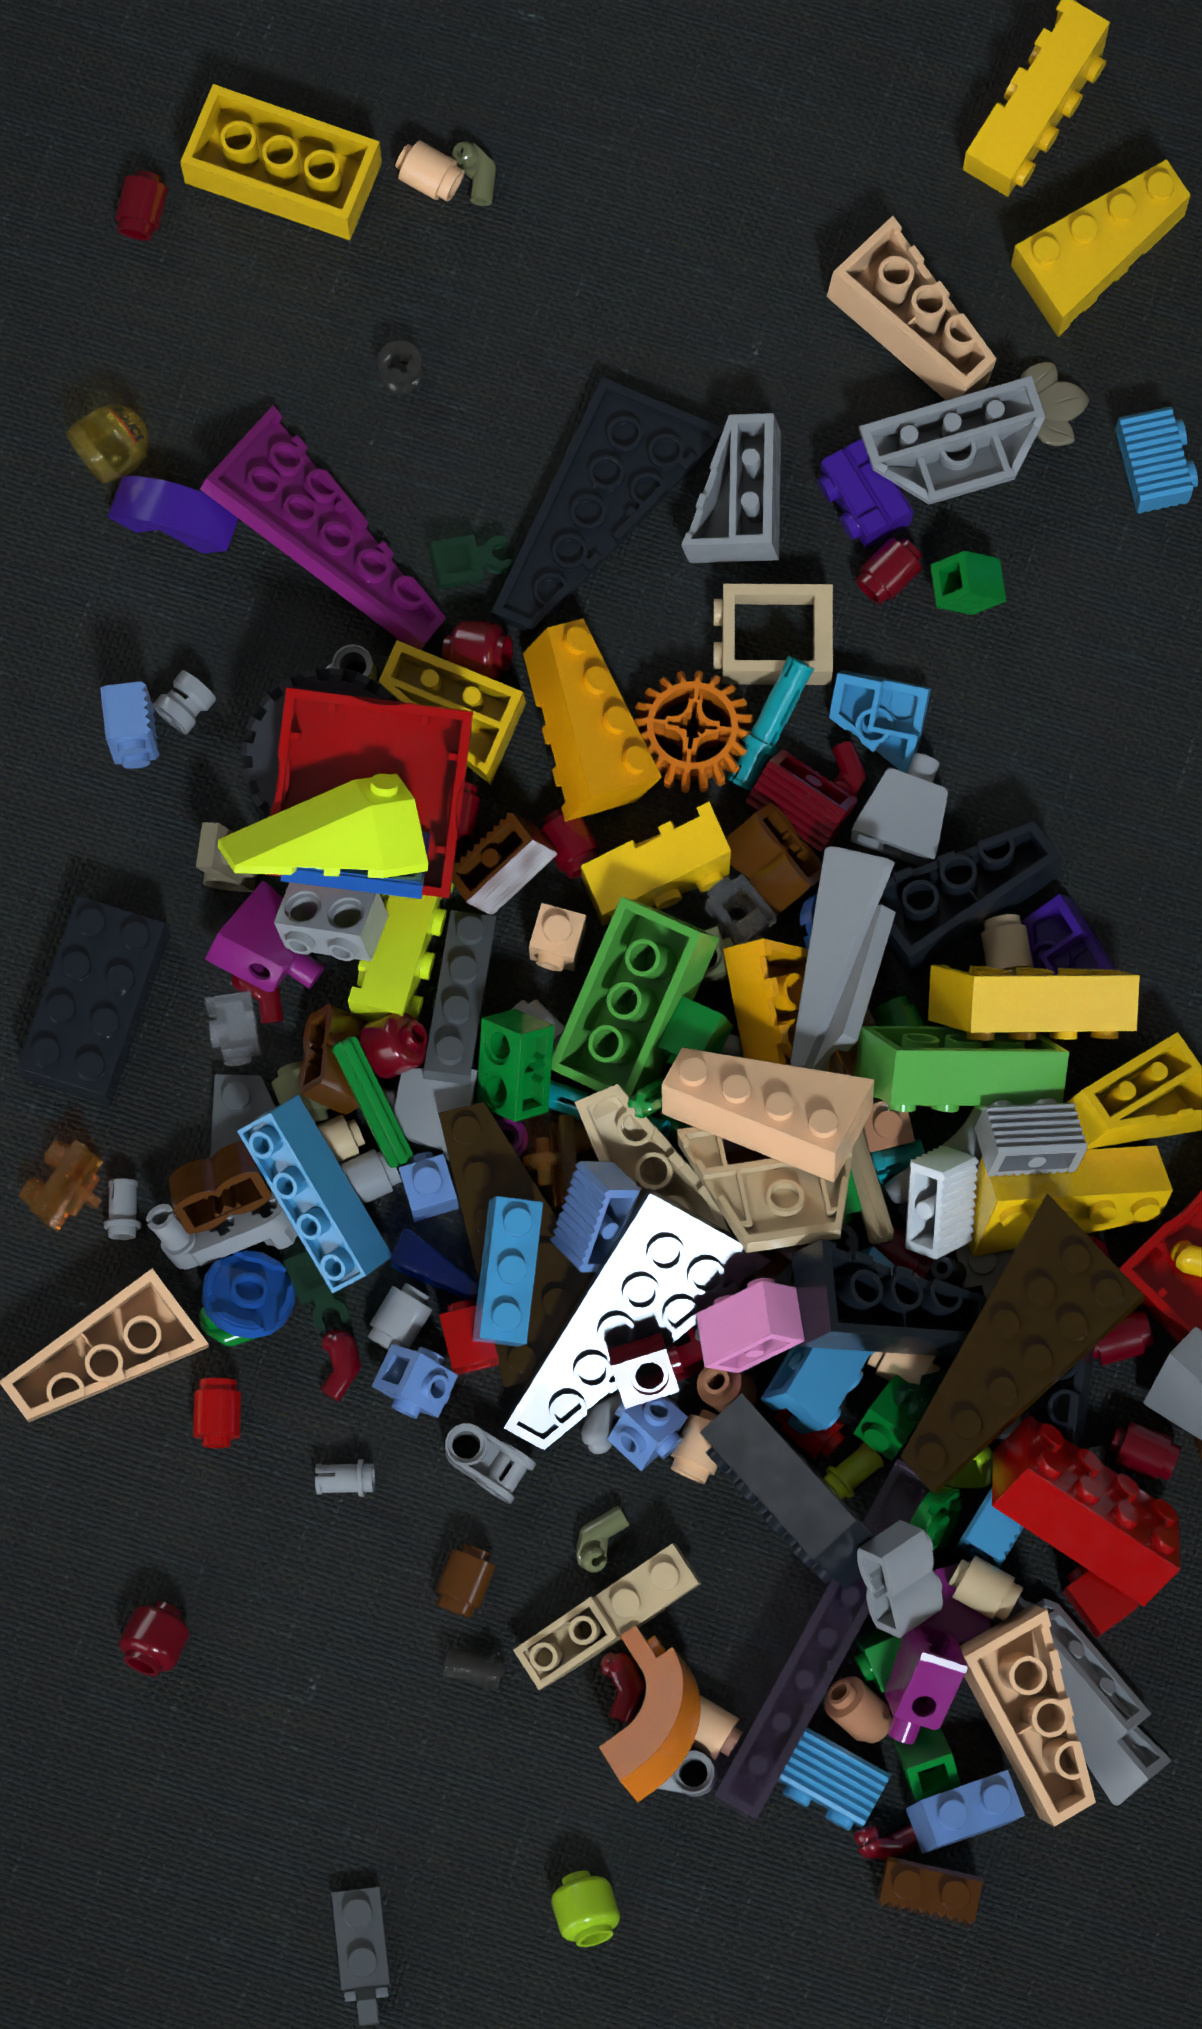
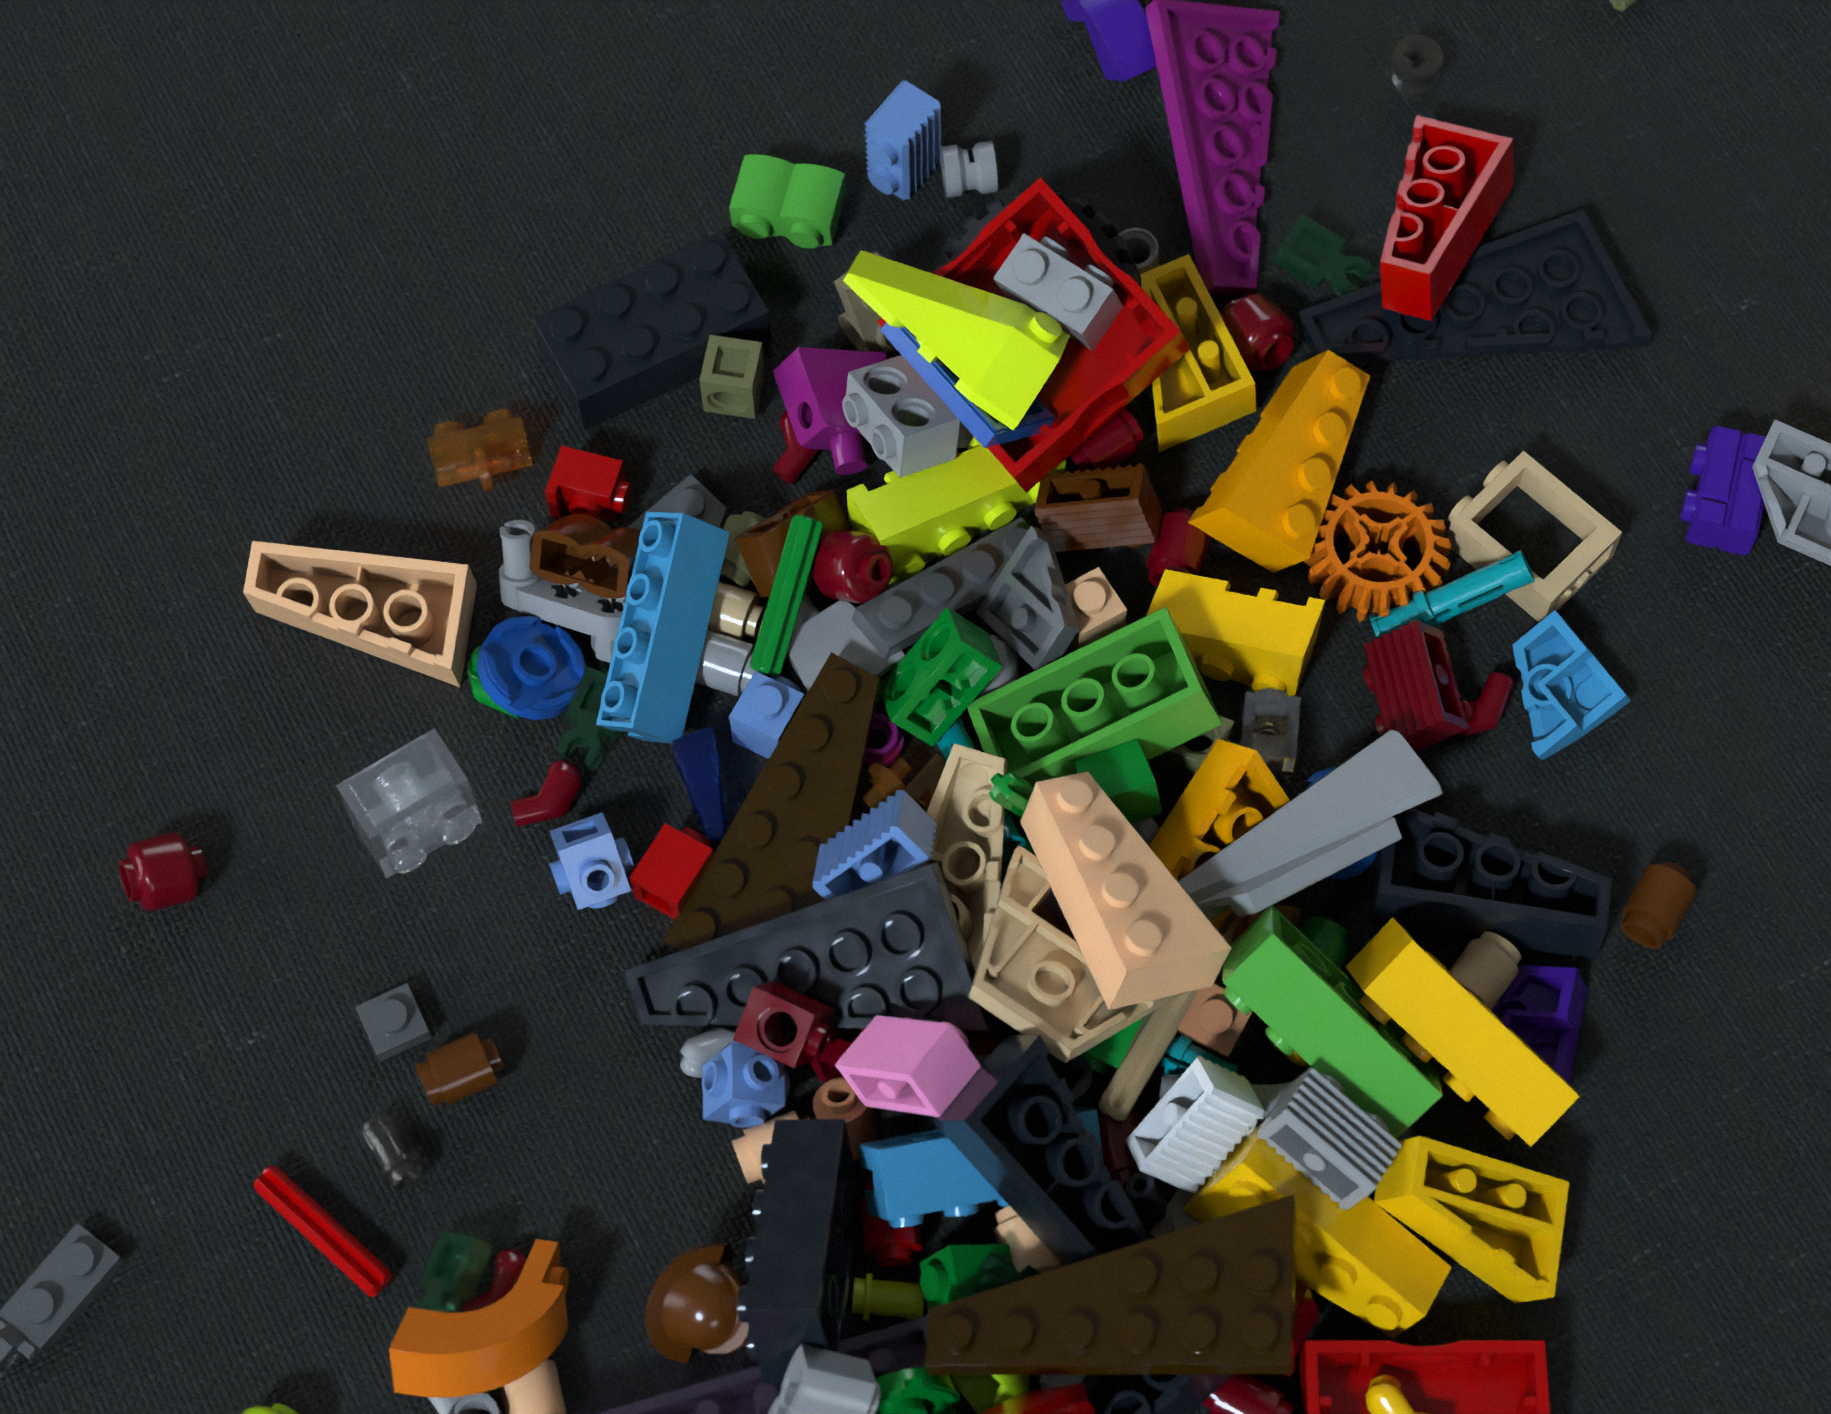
camera: 45 degrees right, 10 degrees down
(88, 832) = (788, 200): none -> bright green brick
(122, 1209) = (511, 505): light grey pin -> none
(160, 1143) = (587, 485): none -> red brick
(180, 986) = (732, 376): none -> olive brick
(217, 1412) = (404, 727): red brick -> none
(234, 1028) = (745, 450): clear brick -> none
(272, 1450) = (410, 804): none -> clear brick
(345, 1478) = (463, 900): light grey pin -> none
(362, 751) = (1051, 284): none -> light grey brick
(391, 1591) = (393, 1022): none -> dark grey plate
(400, 1317) = (635, 802): light grey brick -> none
(481, 1754) = (323, 1231): none -> red axle
(489, 1462) = (584, 993): light grey piece -> none
(507, 1271) = (752, 831): dark azure brick -> none
(519, 454) = (1442, 210): none -> red wedge
(525, 966) = (1031, 602): none -> dark grey wing
(586, 1704) = (453, 1271): none -> clear green plate
(594, 1539) = (608, 1141): olive arm -> none
(607, 1616) = (527, 1208): tan slope -> none
(741, 500) = (1614, 399): light grey wedge -> none
(762, 1581) = (696, 1305): none -> reddish brown helmet
(774, 858) = (1341, 707): reddish brown brick -> none
(889, 570) = (1688, 570): dark red brick -> none
(904, 813) = (1501, 778): light grey torso -> none
(968, 582) = (1751, 636): green brick -> none
(1066, 807) = (1658, 904): none -> reddish brown brick

